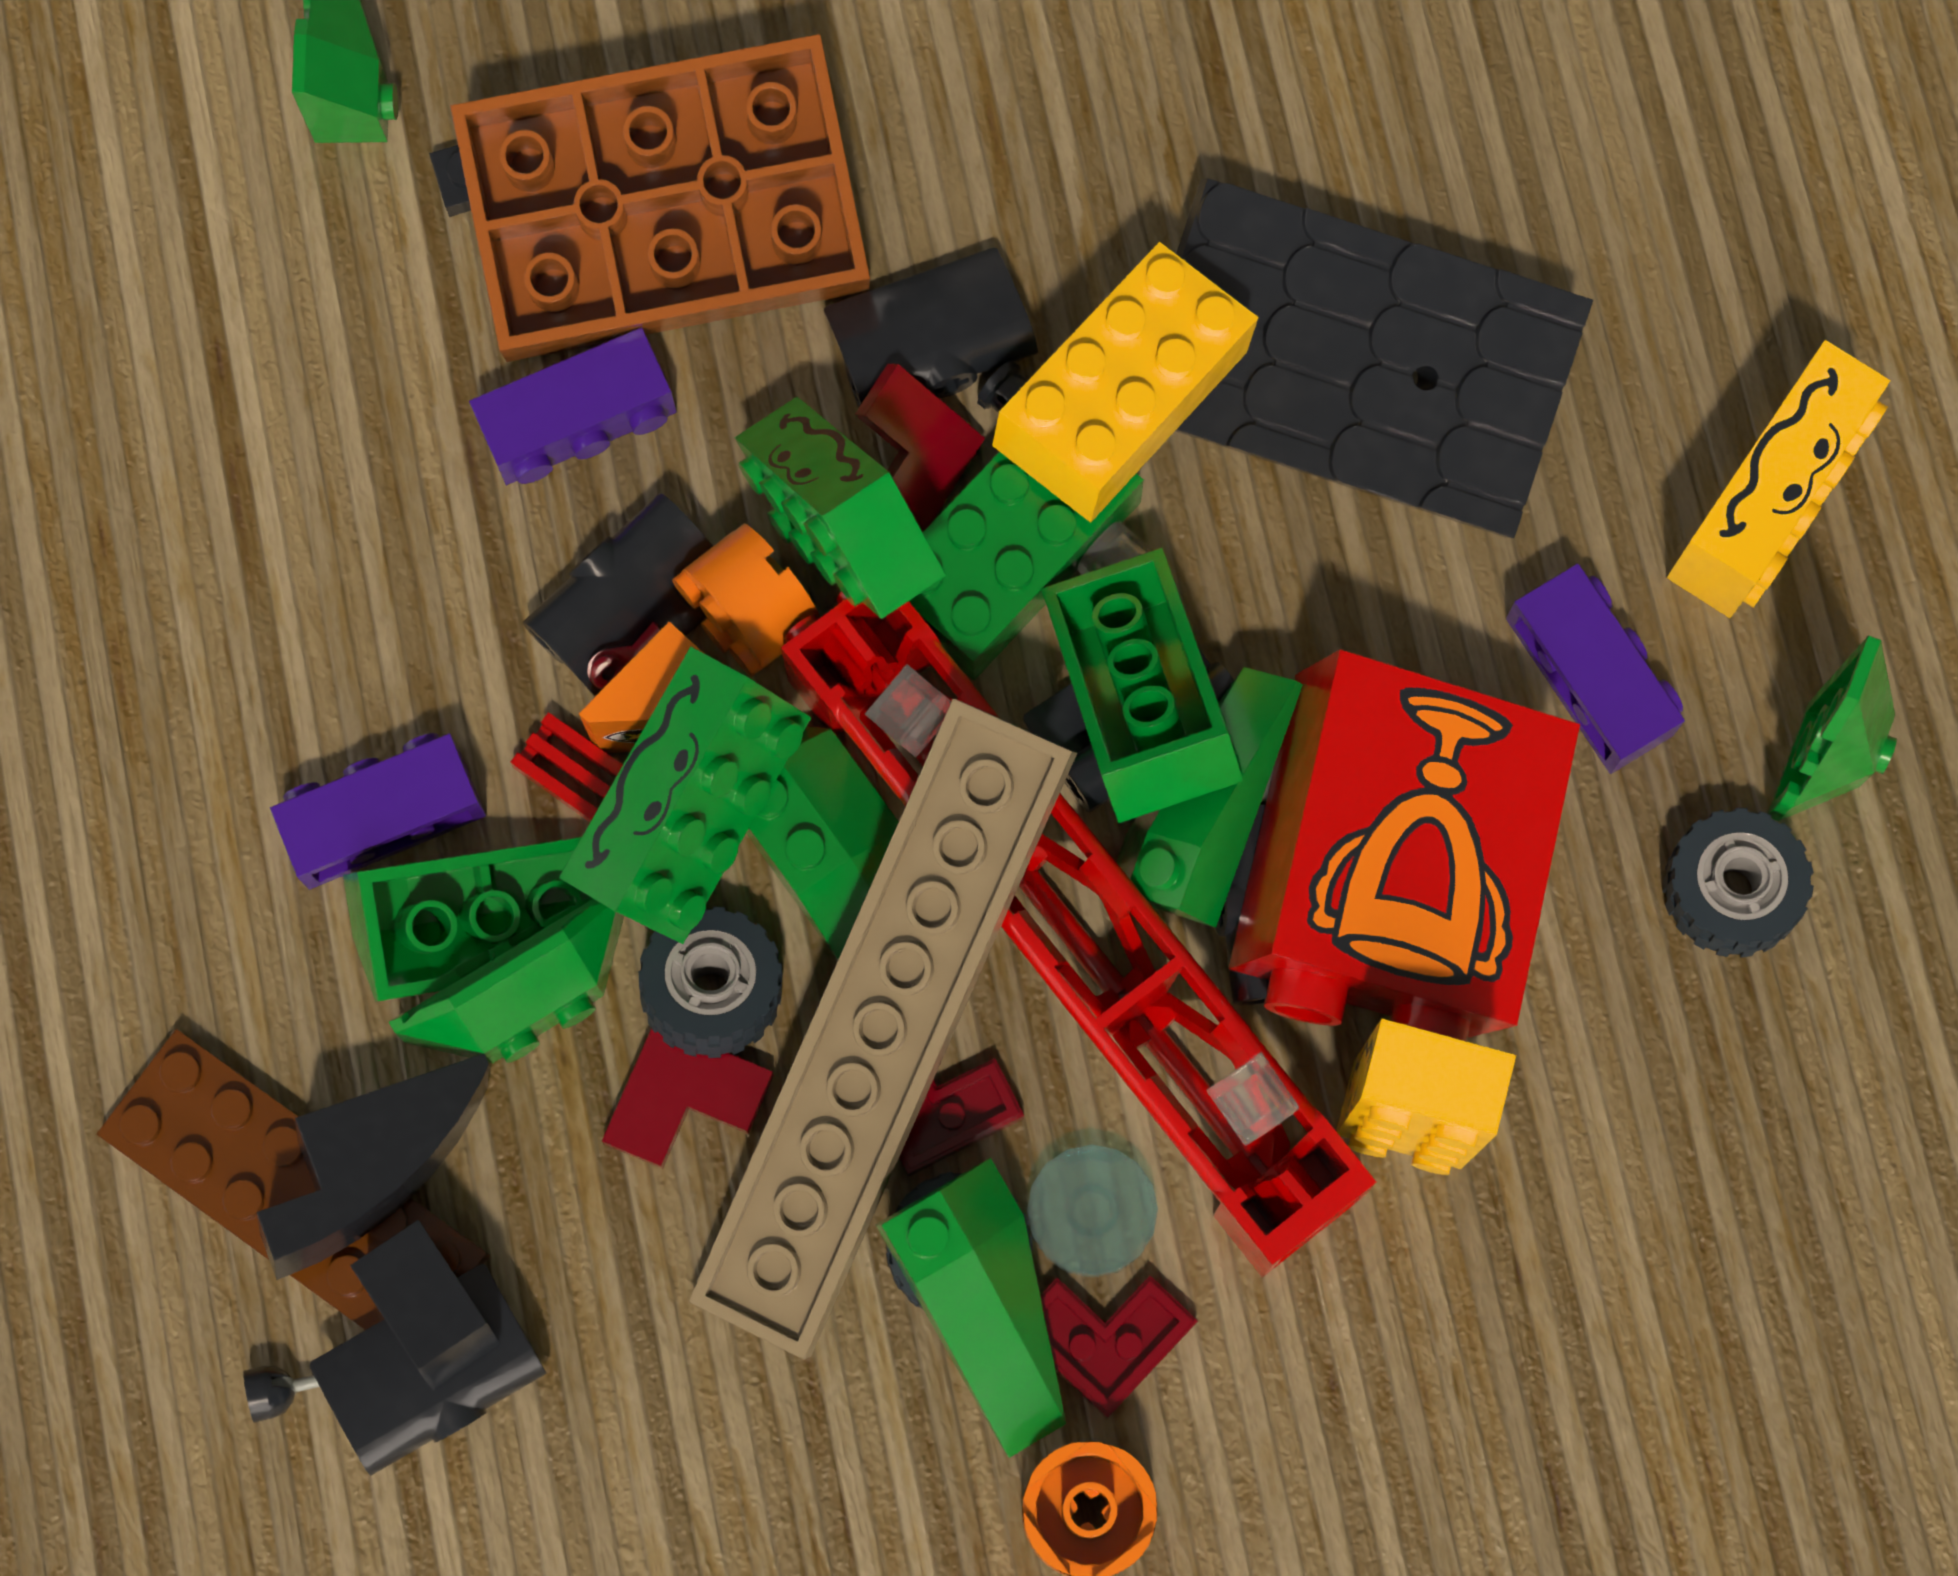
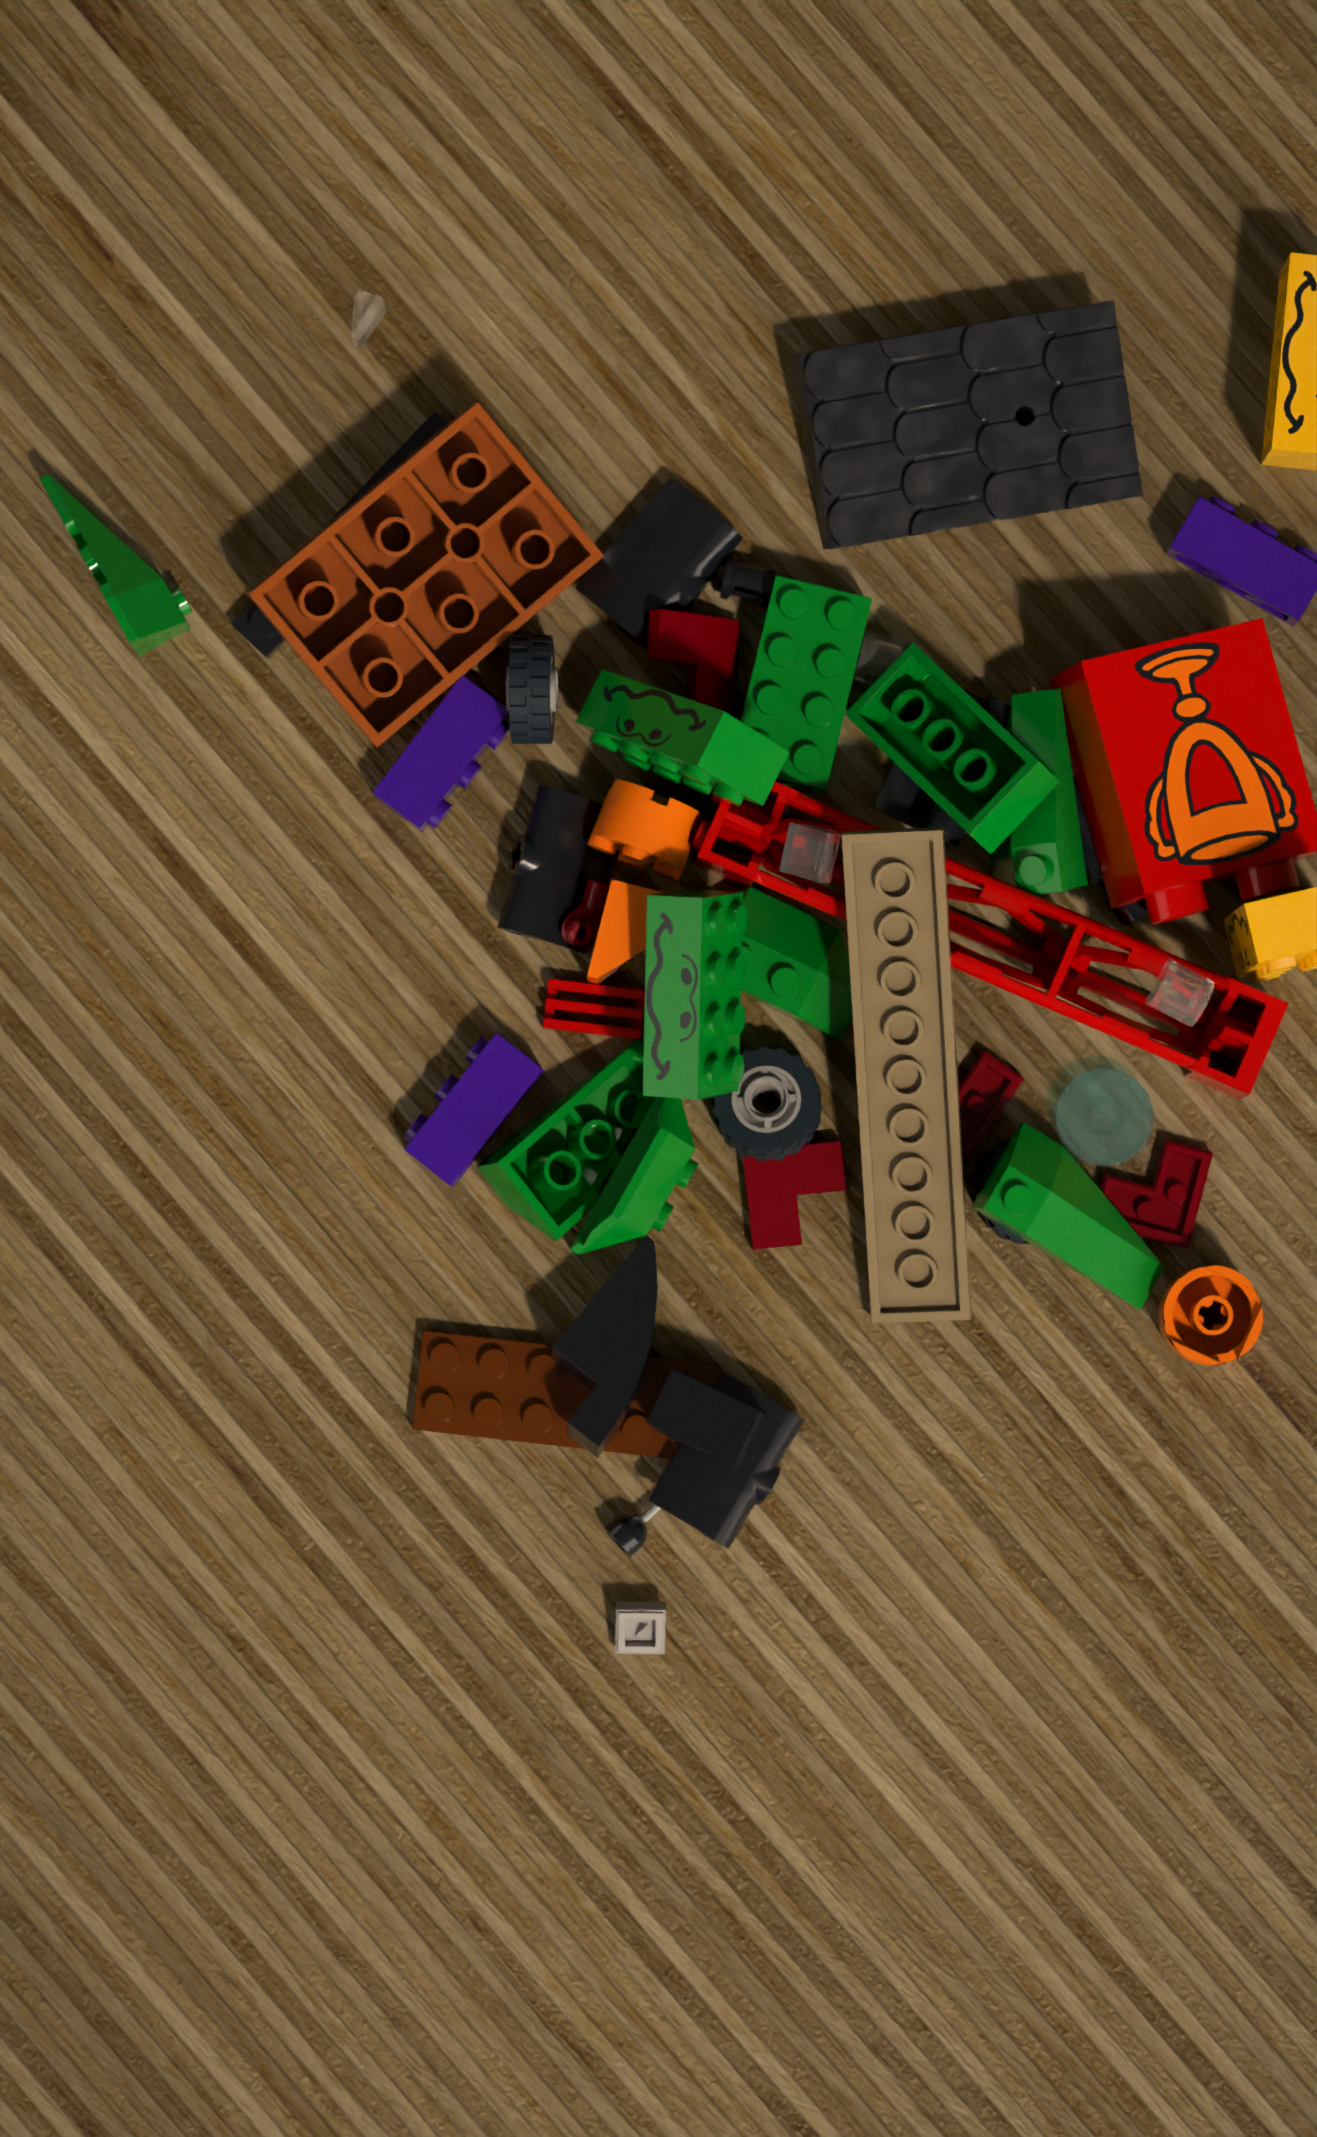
camera: 30 degrees left, 10 degrees up
(217, 1513) = (640, 1627): none -> light grey tile
(708, 381) = (531, 689): none -> black wheel
(1124, 381) = (826, 540): yellow brick -> none

